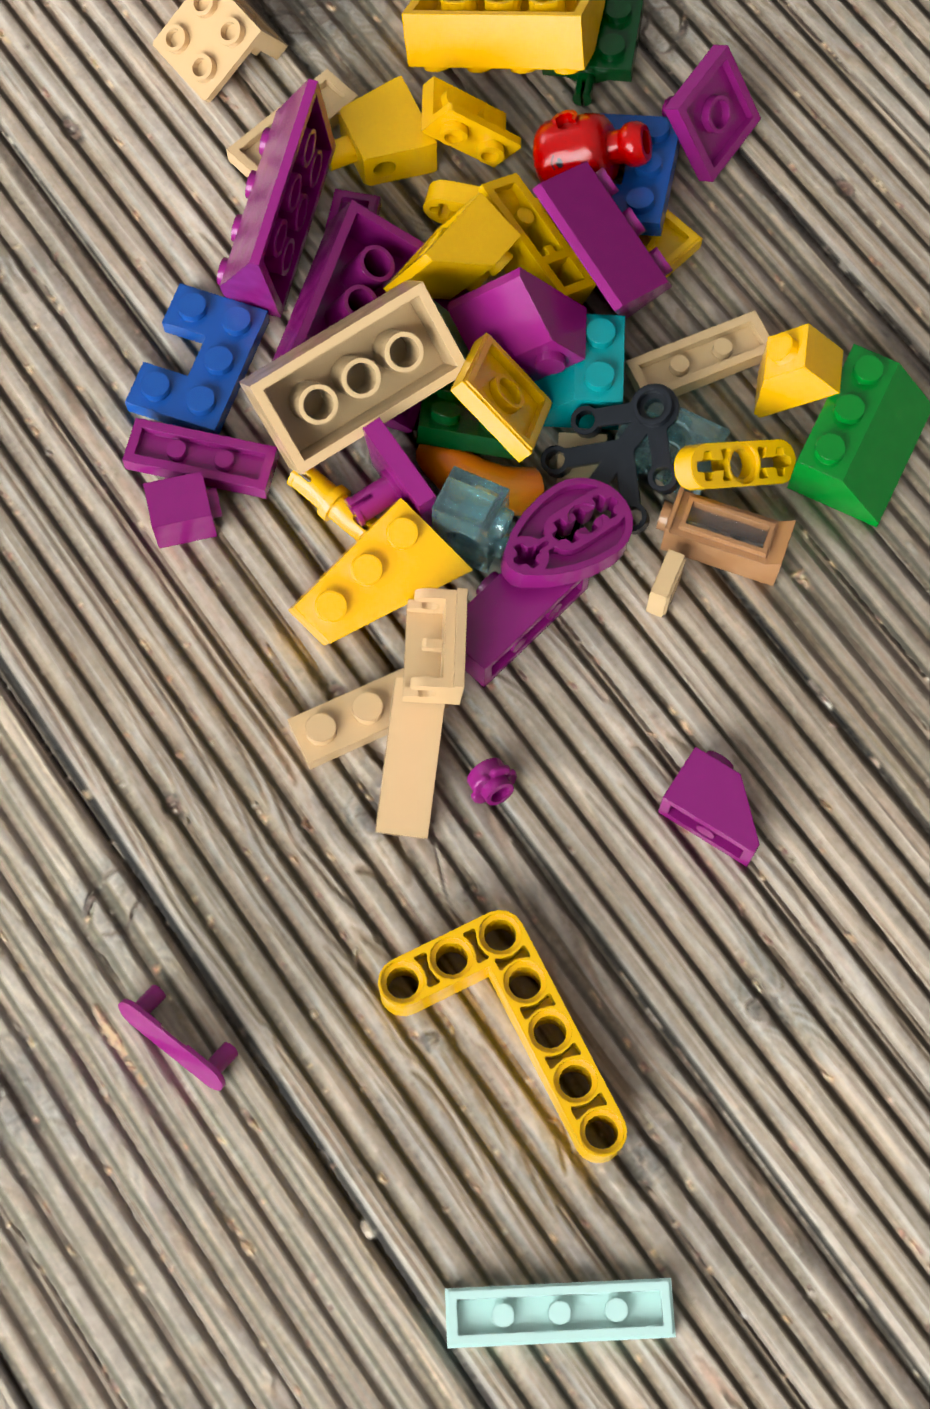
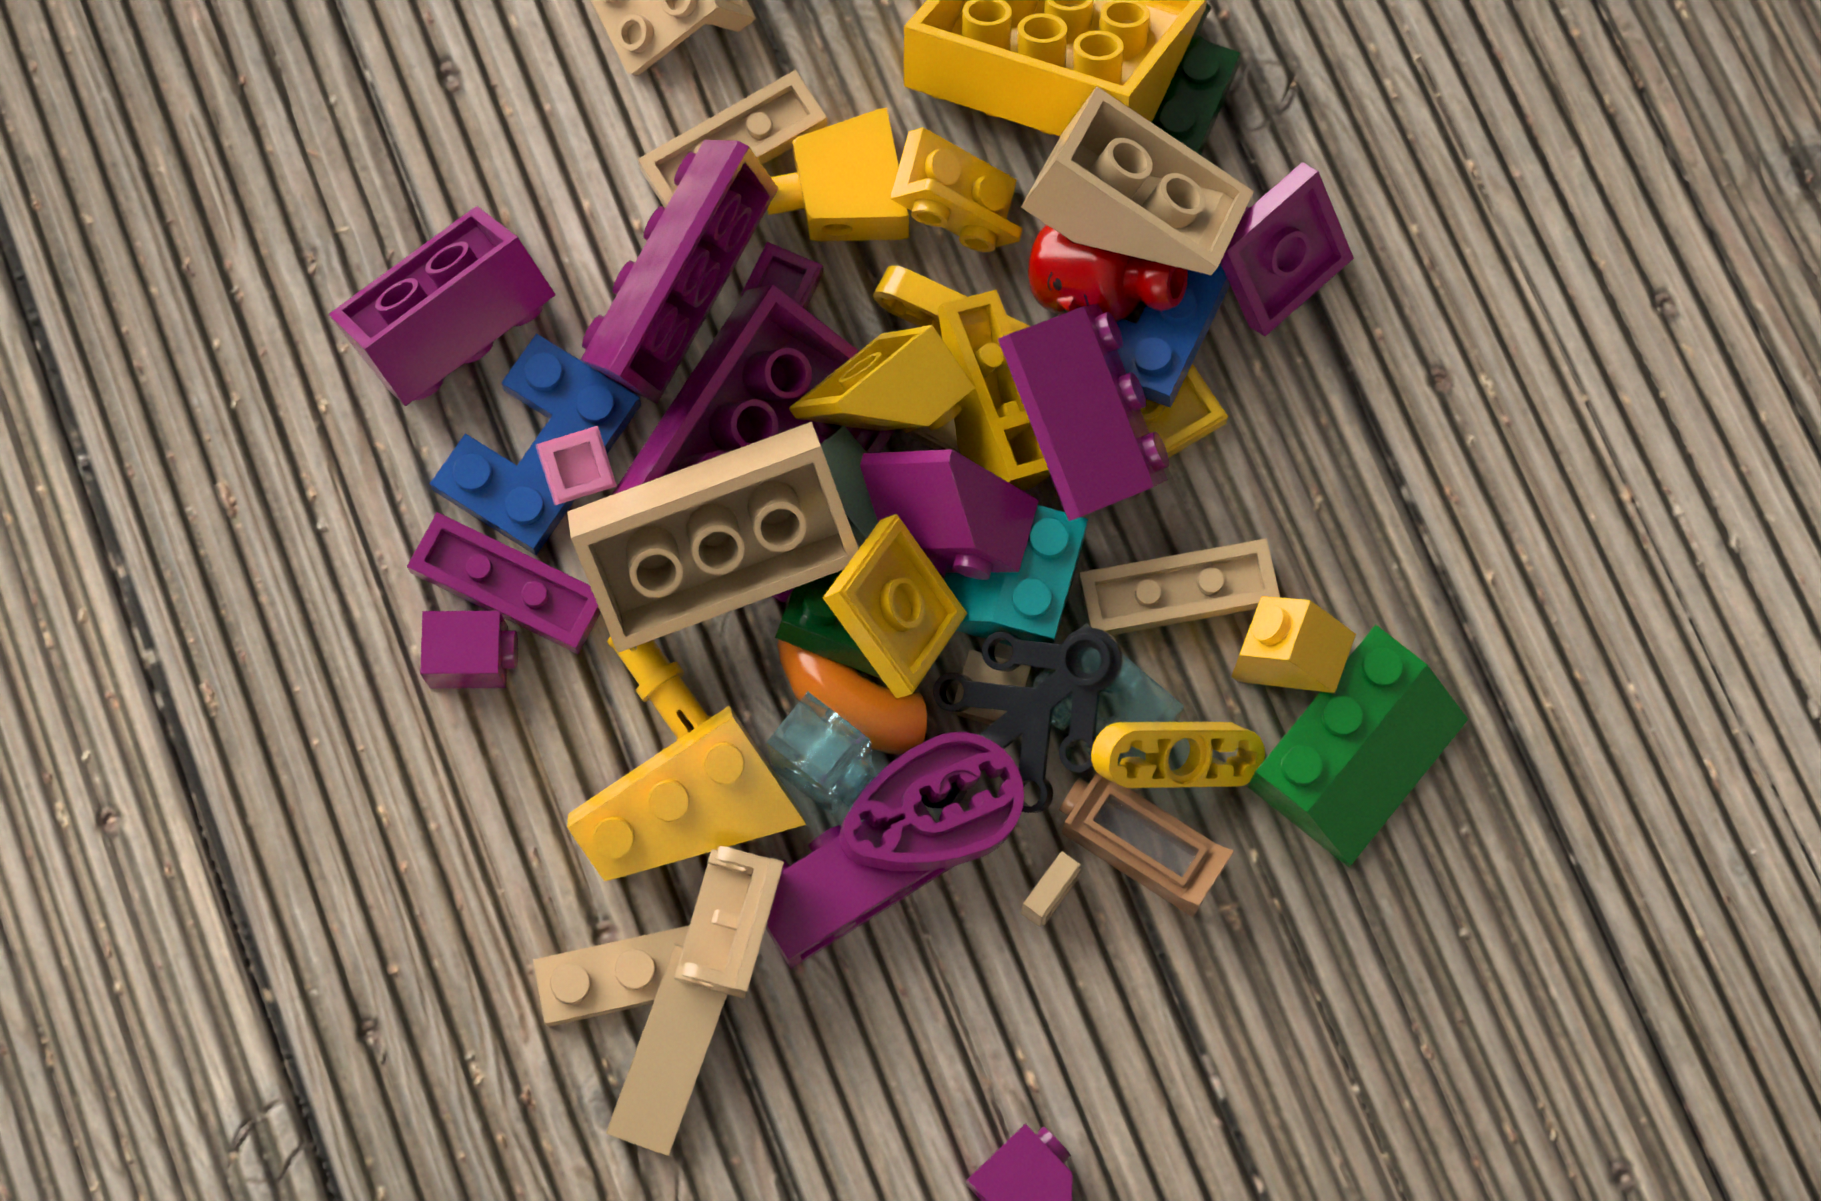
camera: 15 degrees right, 5 degrees up
(107, 277) = (443, 305): none -> magenta slope
(231, 361) = (576, 465): none -> bright pink tile
(396, 481) = (737, 685): magenta tile -> none
(491, 781) = (765, 1102): magenta plate -> none
(599, 80) = (1136, 190): none -> tan slope

